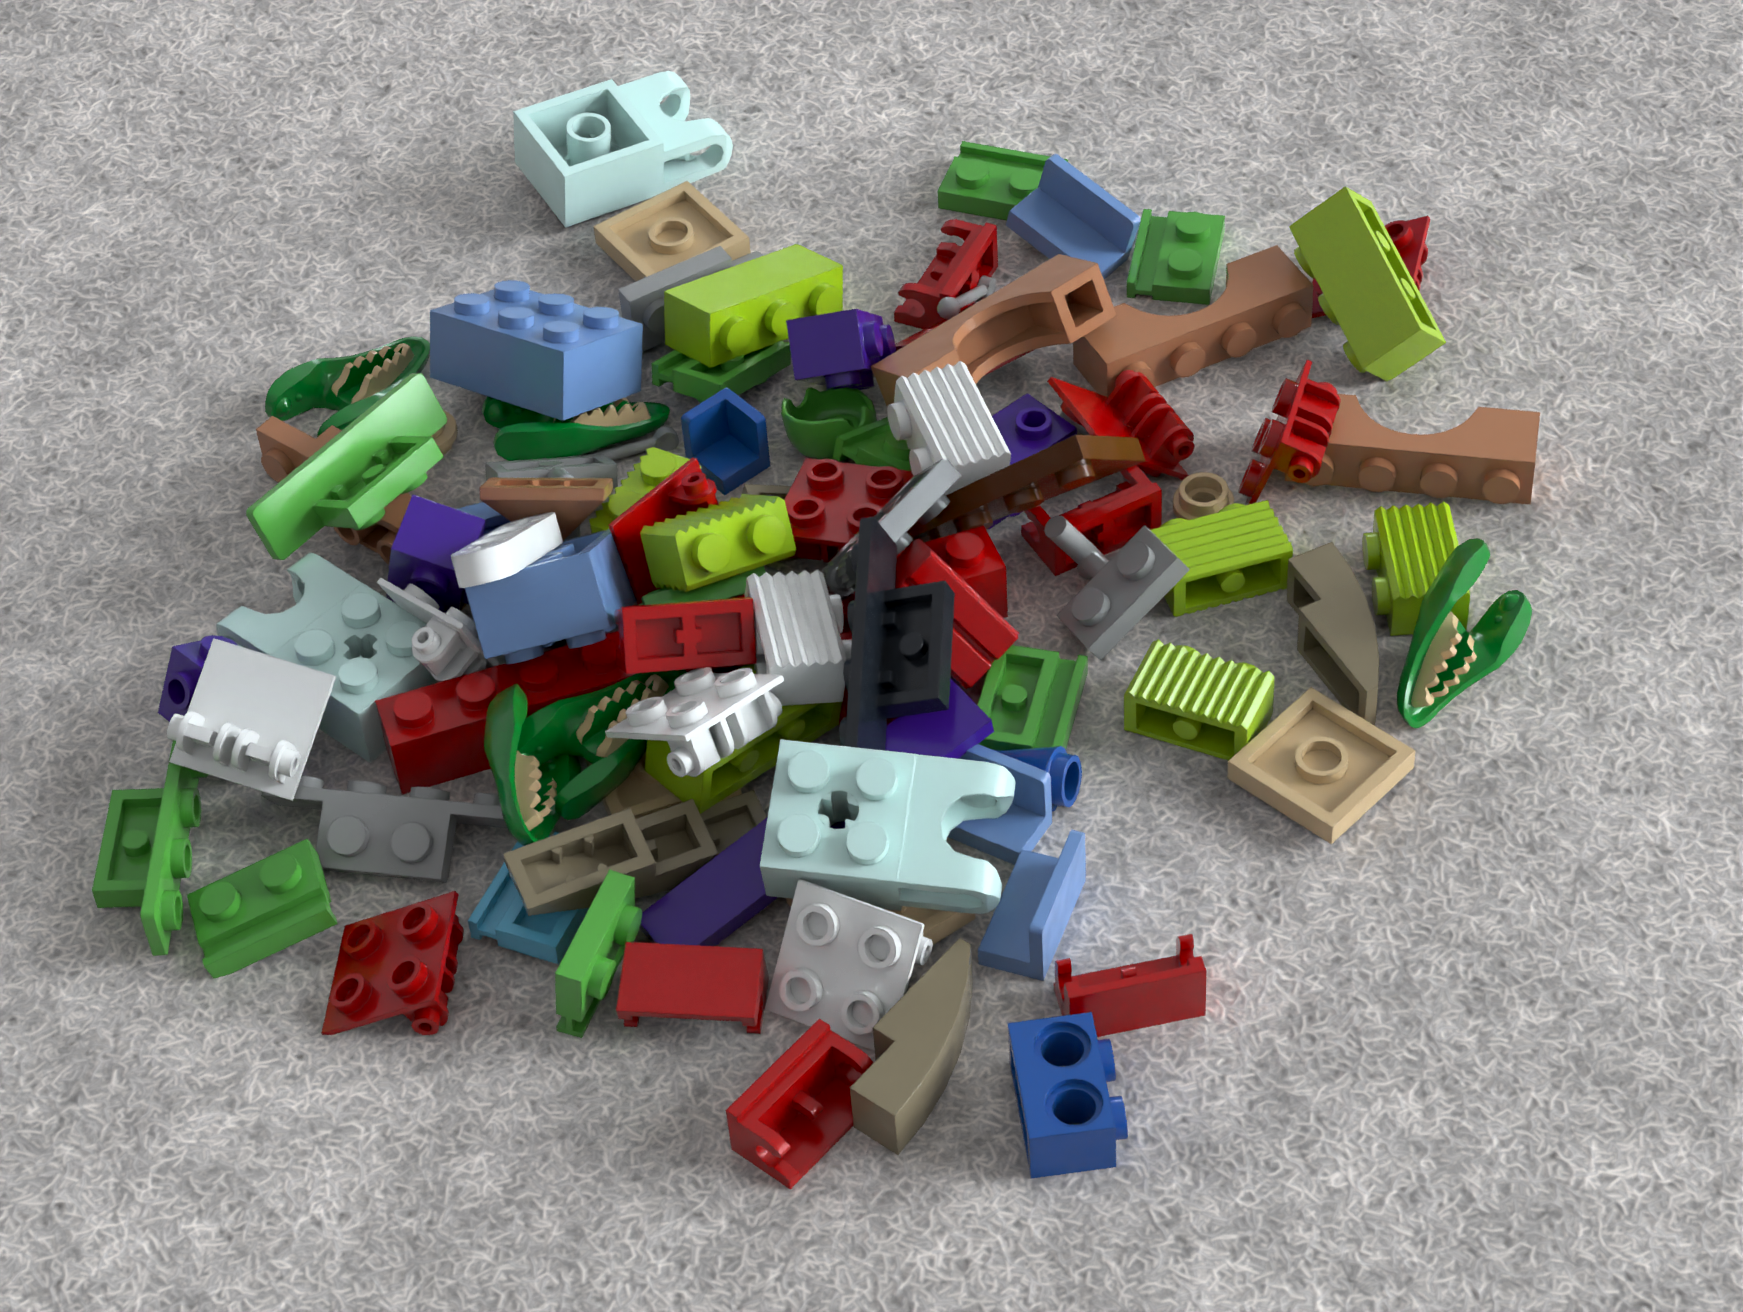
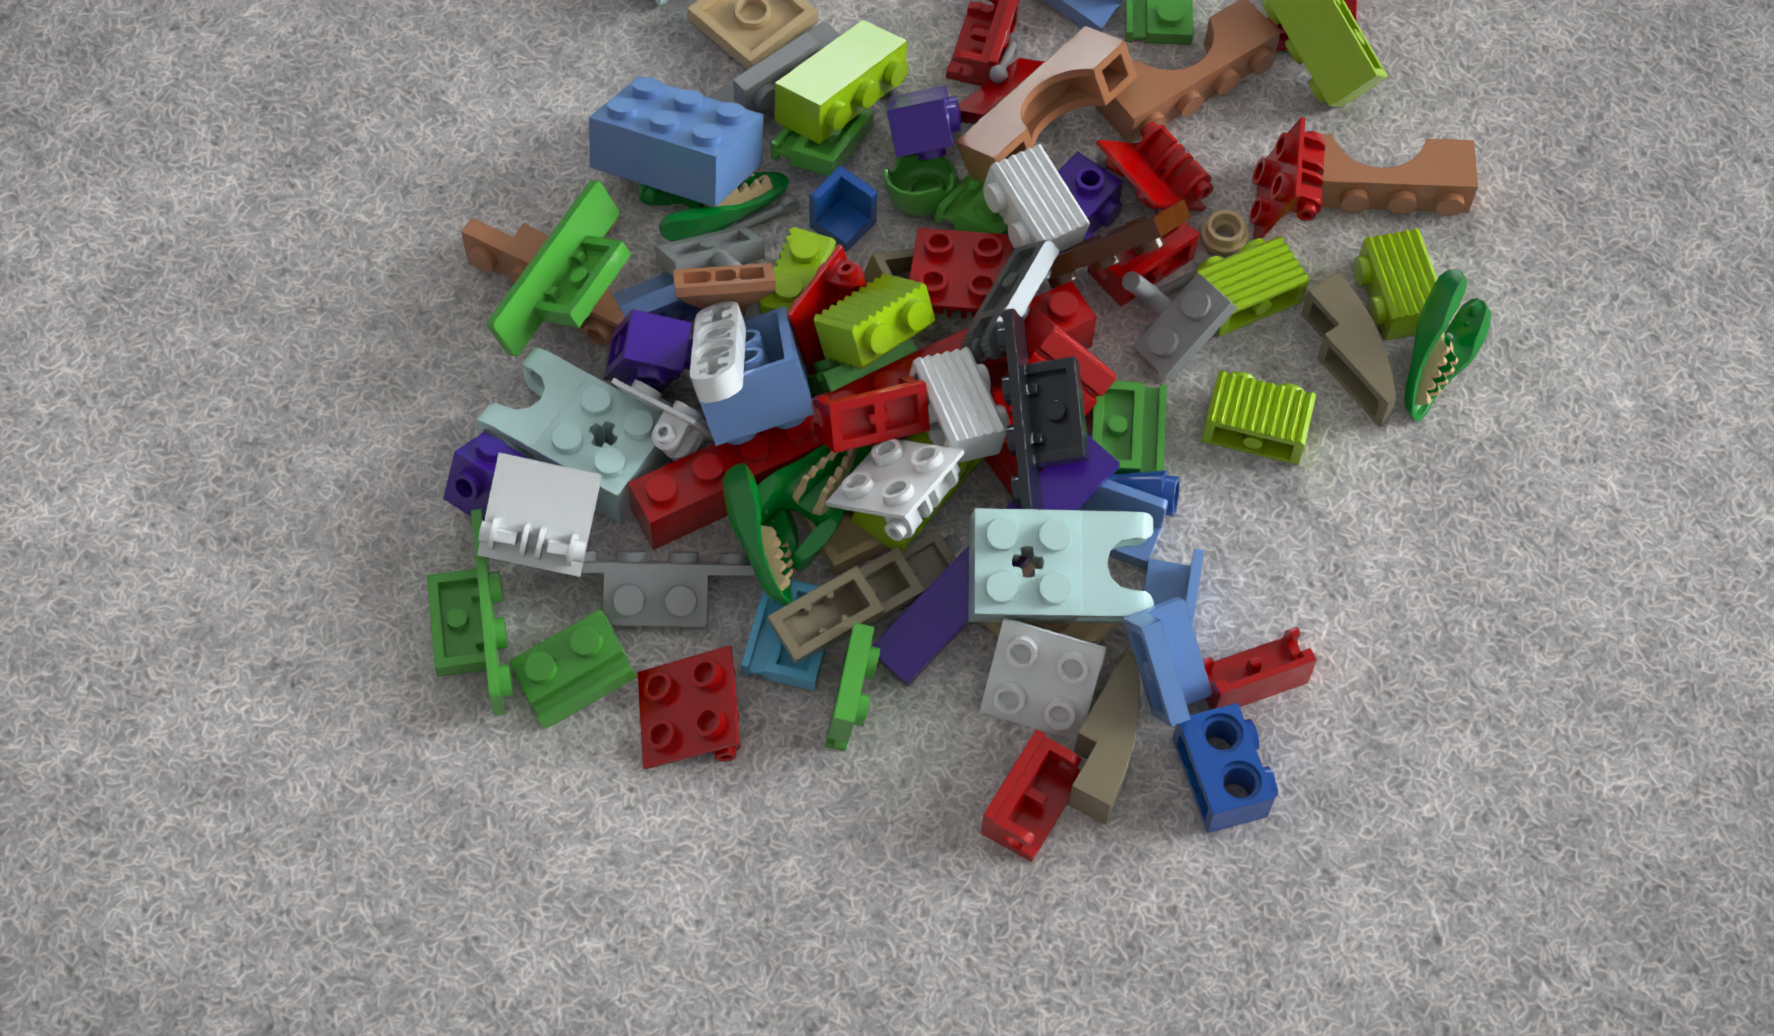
camera: 15 degrees left, 15 degrees up
(346, 382) = (526, 172): green animal -> none
(693, 983) = (928, 705): red hinge -> none
(1008, 949) = (1168, 659): none -> medium blue panel
(1321, 765) = (1358, 463): tan plate -> none

